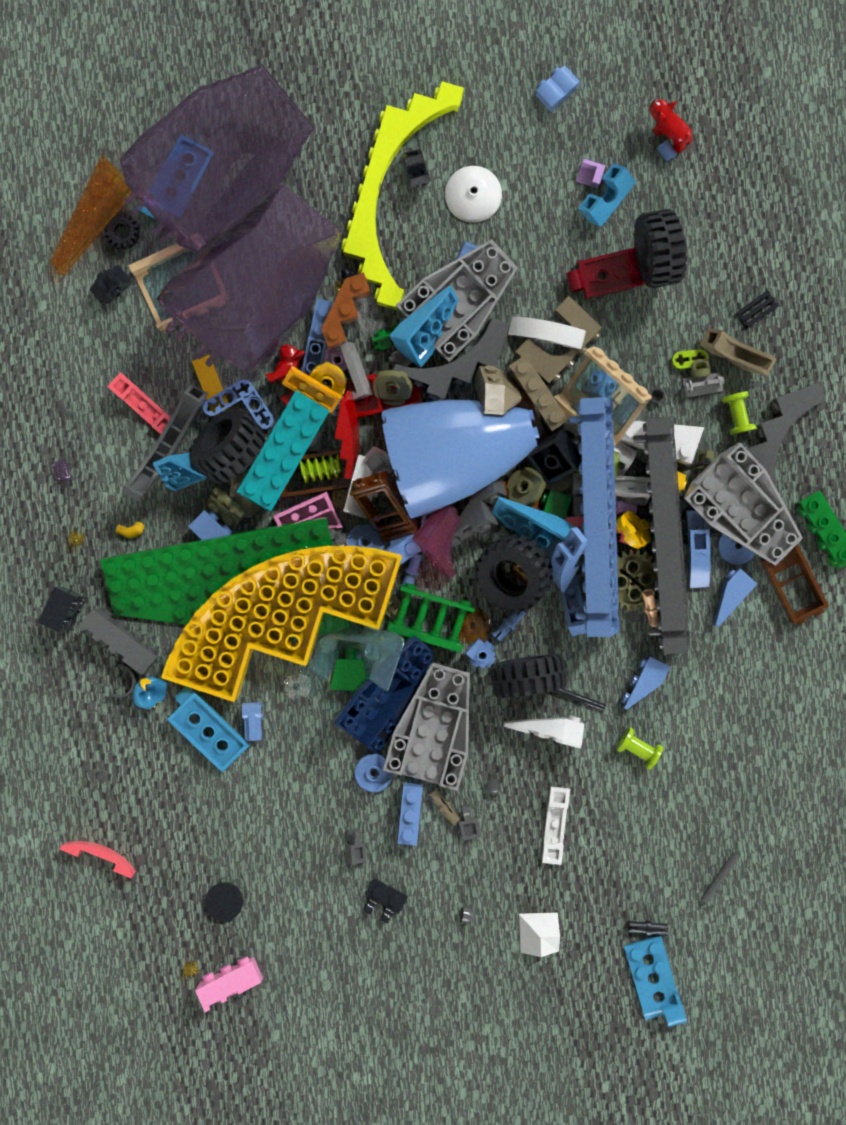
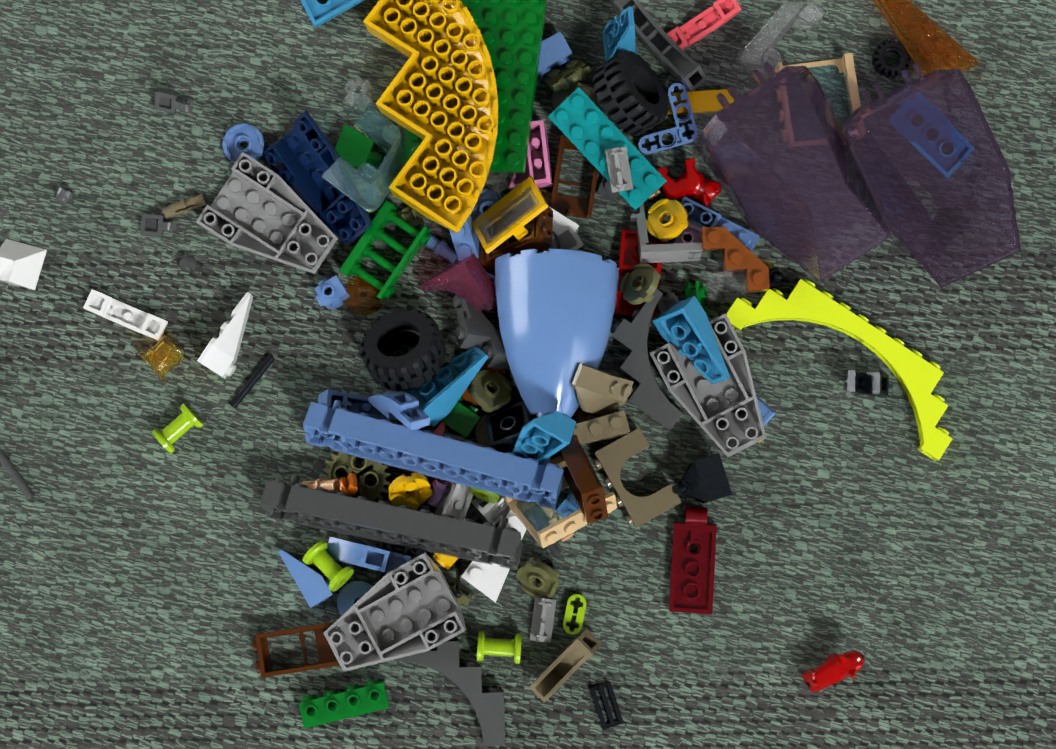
camera: 100 degrees right, 5 degrees down
(110, 284) = (838, 29): black hinge -> none
(151, 346) = (791, 14): none -> clear windscreen
(252, 720) = (342, 38): medium blue piece -> none
(300, 433) = (619, 169): none -> light grey hinge
(312, 389) = (663, 199): light orange plate -> none
(320, 468) = (577, 185): lime piece -> none
(348, 432) = (606, 222): red slope -> none
(369, 516) = (509, 215): none -> piece
(386, 896) = (111, 118): black plate -> none
(410, 814) = (188, 167): medium blue brick -> none
(470, 206) = (808, 440): white dish -> none
(508, 624) = (352, 331): medium blue pin -> none
(528, 676) = (290, 330): black tyre -> none
(543, 281) = (704, 480): none -> black piece
(547, 331) = (649, 468): white slope -> none
(557, 87) = (910, 562): medium blue brick -> none
(558, 421) = (544, 436): none -> dark azure wedge
(583, 781) = (162, 357): none -> clear yellow piece
(584, 379) = (583, 482): none -> reddish brown door
(590, 173) = (807, 569): lavender panel -> none
(618, 185) = (783, 593): dark azure arch -> none
(644, 583) = (349, 484): none -> orange plate
(652, 676) = (247, 463): medium blue slope -> none
(660, 248) = (700, 609): black tyre -> none
(666, 151) = (807, 660): medium blue hinge -> none
(671, 397) = (535, 569): none -> olive plate
(701, 371) = (557, 619): olive tile -> none
(717, 580) = (330, 568): none -> lime piece

